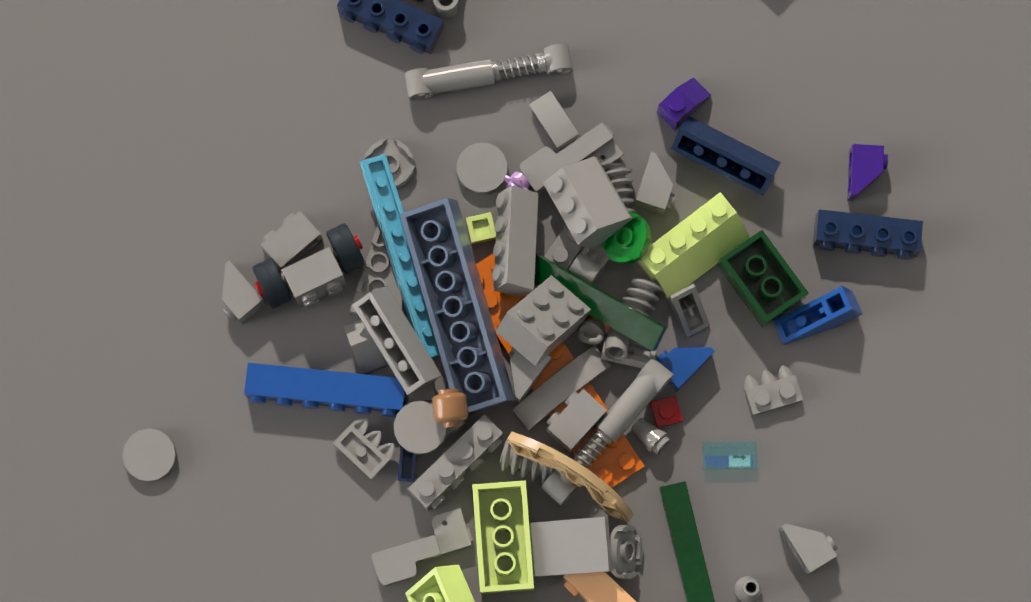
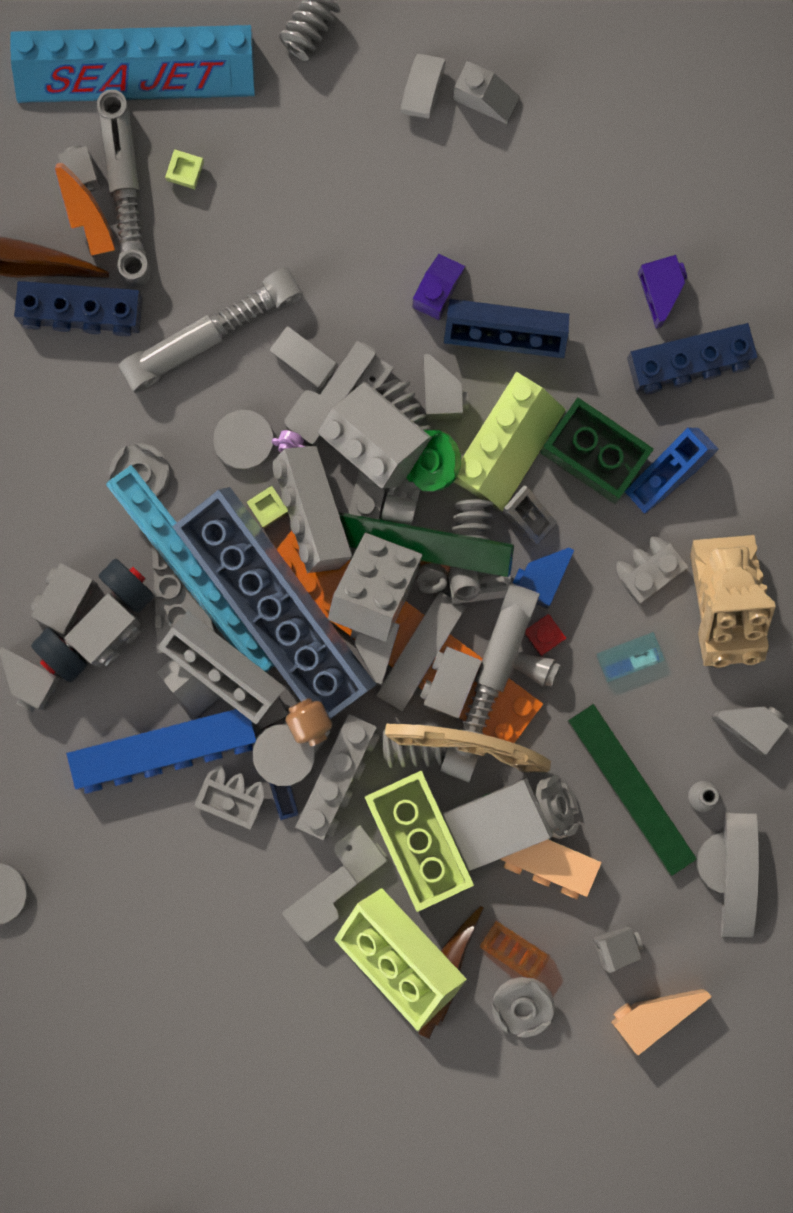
camera: 20 degrees left, 5 degrees up
(827, 439) = (731, 601): none -> tan brick

